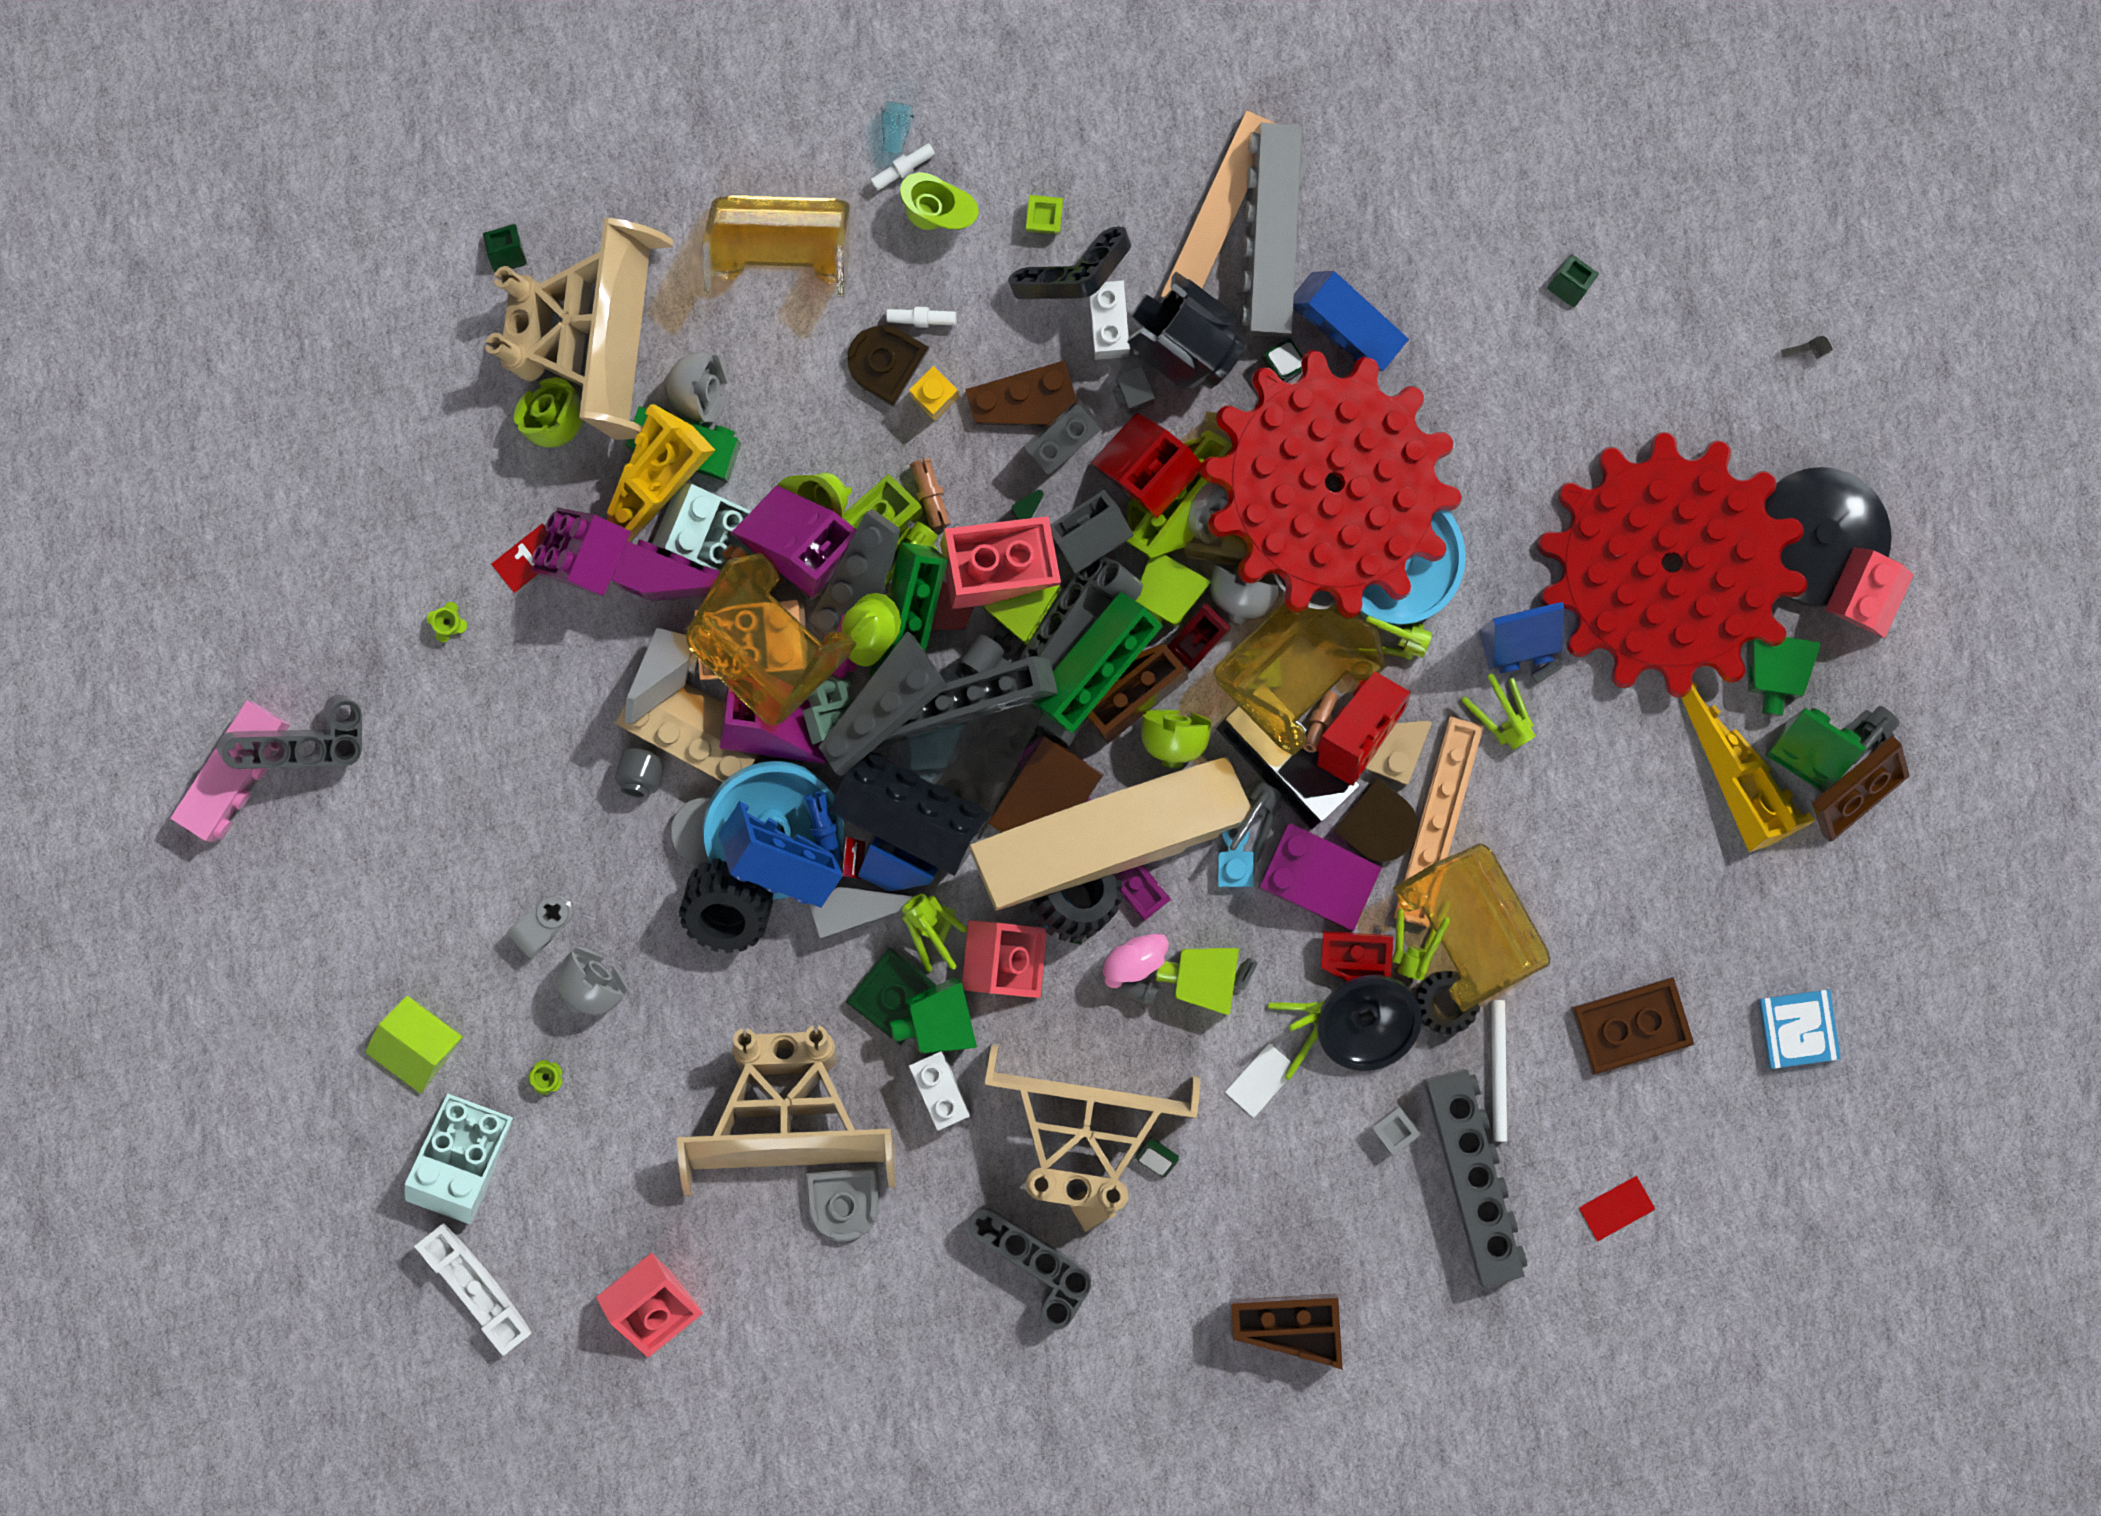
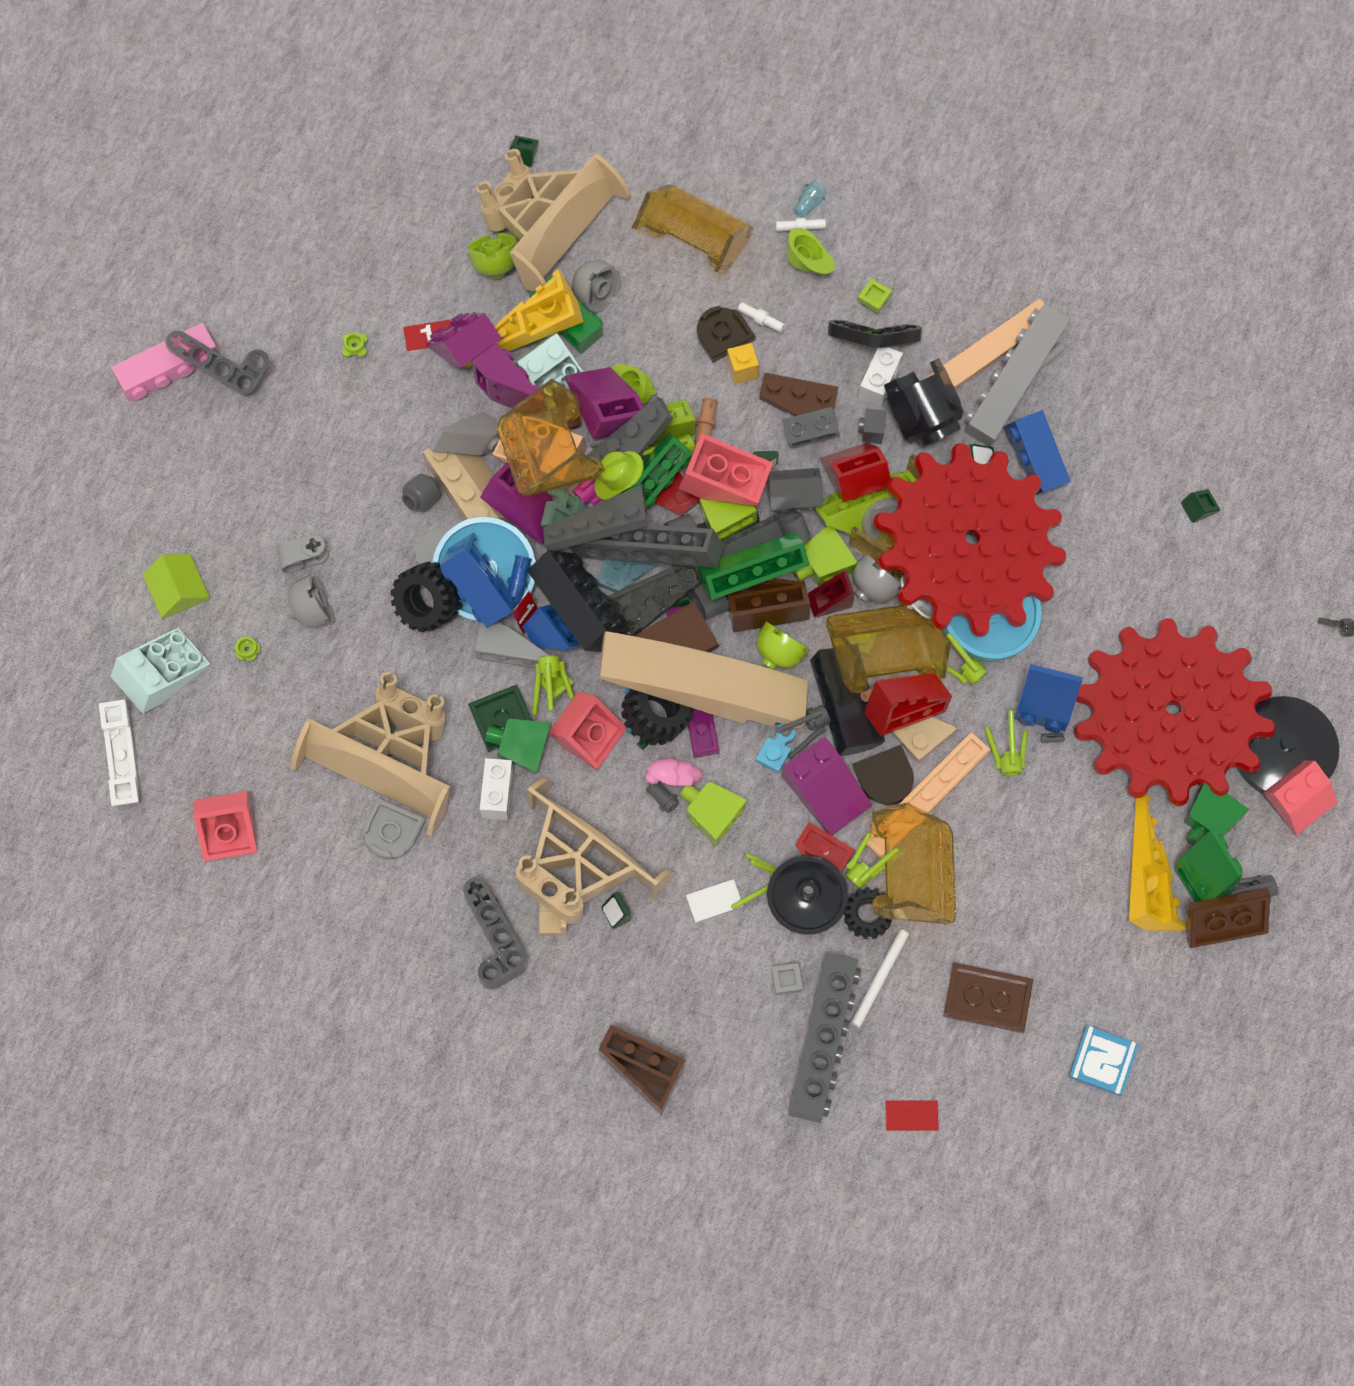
camera: 25 degrees right, 15 degrees down
(1242, 985) = (742, 825): dark grey piece -> none

